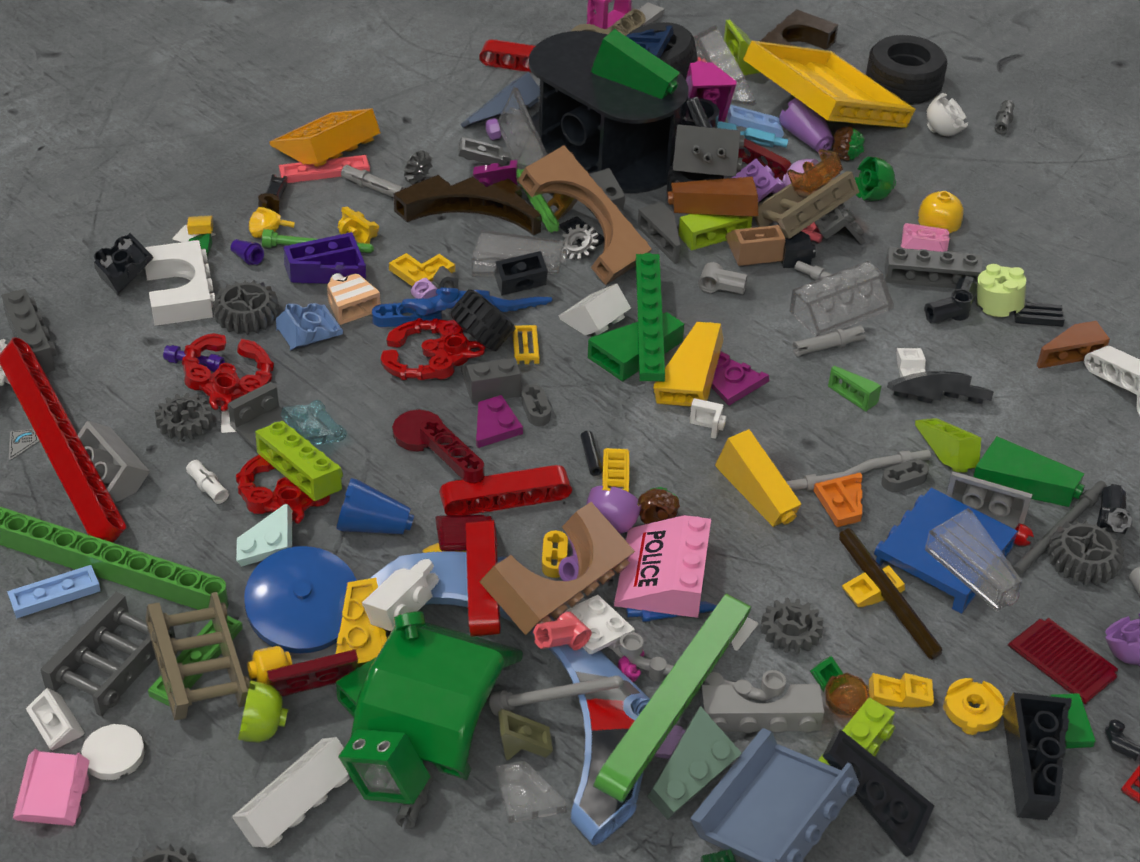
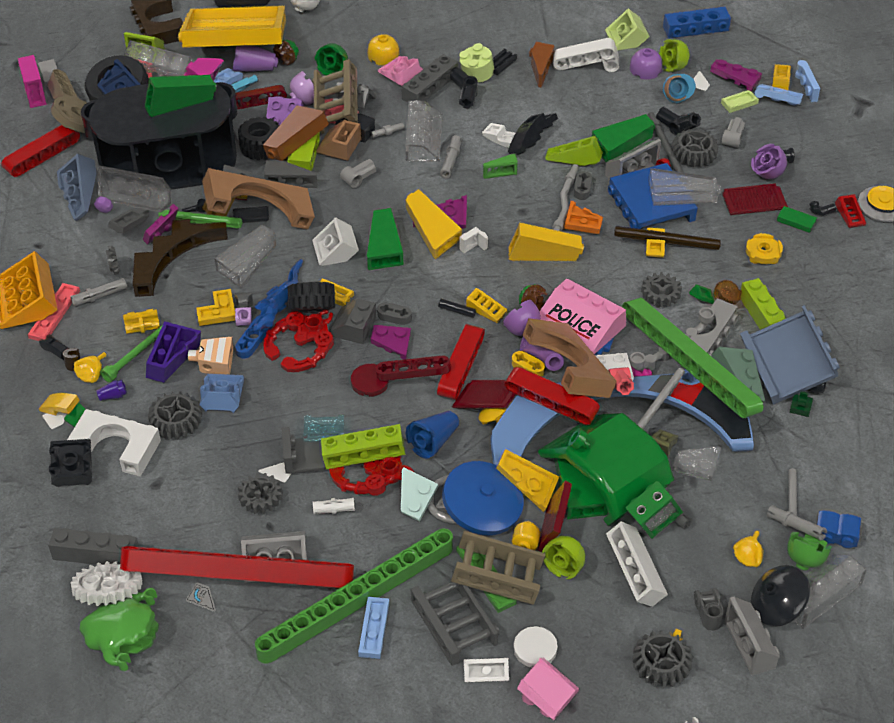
camera: 55 degrees left, 5 degrees up
(174, 354) = (186, 474): dark purple bar -> none
(224, 383) = (241, 459): red piece -> none
(400, 594) = (534, 442): white hinge -> none
(521, 273) = (272, 260): black brick -> none
(583, 234) = (258, 213): light grey gear -> none
(649, 318) = (374, 219): green plate -> none
(706, 148) = (257, 109): dark grey piece -> none
(816, 175) = (326, 75): clear orange window -> none
(885, 795) = (788, 307): black wing -> none
(903, 692) = (735, 270): yellow slope -> none
(1036, 751) = (817, 241): black wedge -> none

